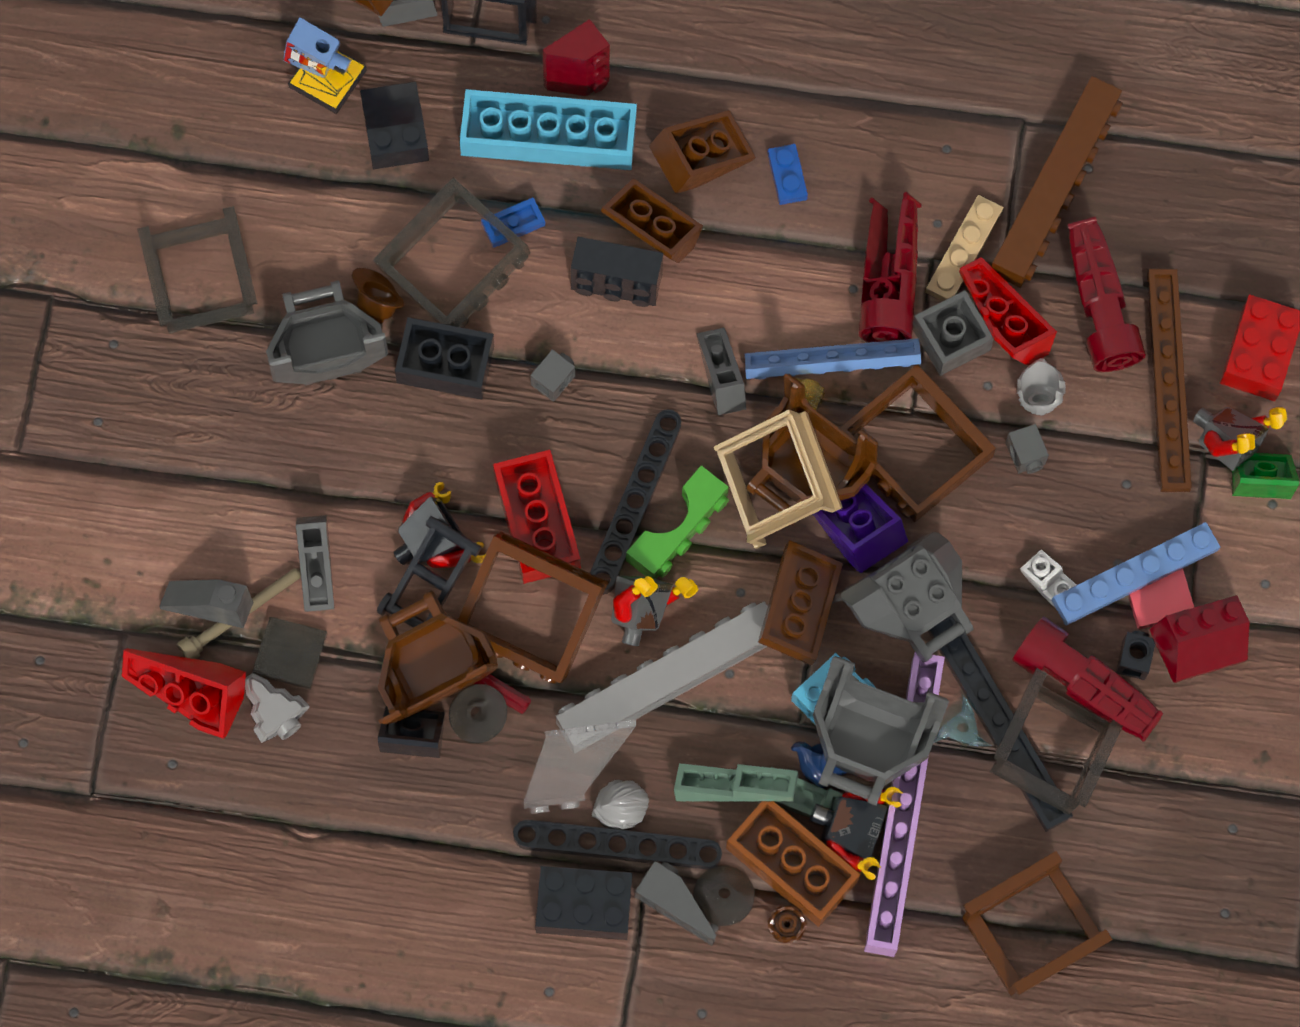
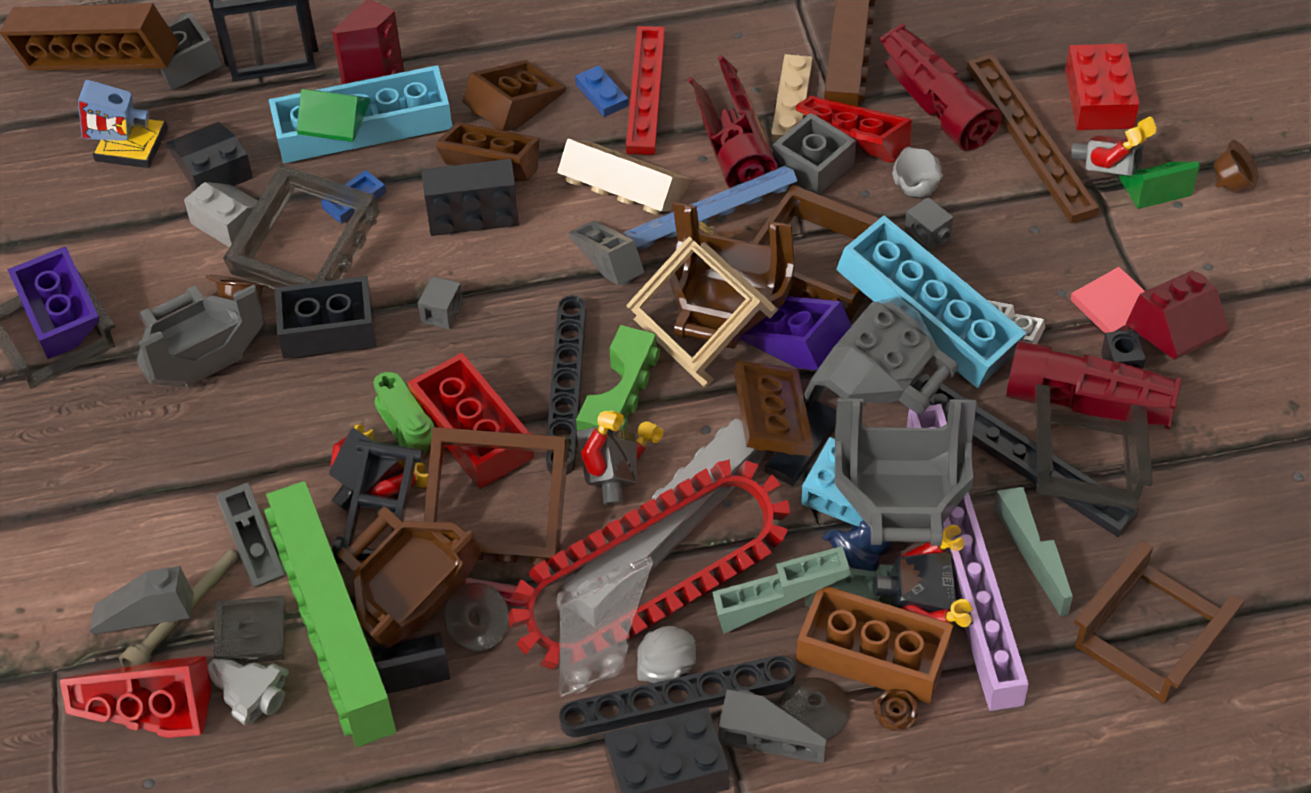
camera: 15 degrees left, 20 degrees down
(211, 257) = (55, 301): none -> dark purple slope
(357, 668) = (329, 616): none -> bright green brick
(391, 197) = (219, 210): none -> light grey slope
(481, 488) = (402, 412): none -> bright green piece
(518, 132) = (331, 114): none -> slope
(706, 659) = (651, 516): none -> red piece
(769, 288) = (622, 175): none -> slope
(828, 190) = (645, 90): none -> red plate
(839, 626) = (790, 467): none -> black tile
(967, 717) = (997, 476): clear light blue piece -> none
(969, 830) = (1041, 557): none -> sand green slope
(984, 539) = (961, 321): none -> medium azure brick
(1135, 573) = (1085, 287): medium blue plate -> none

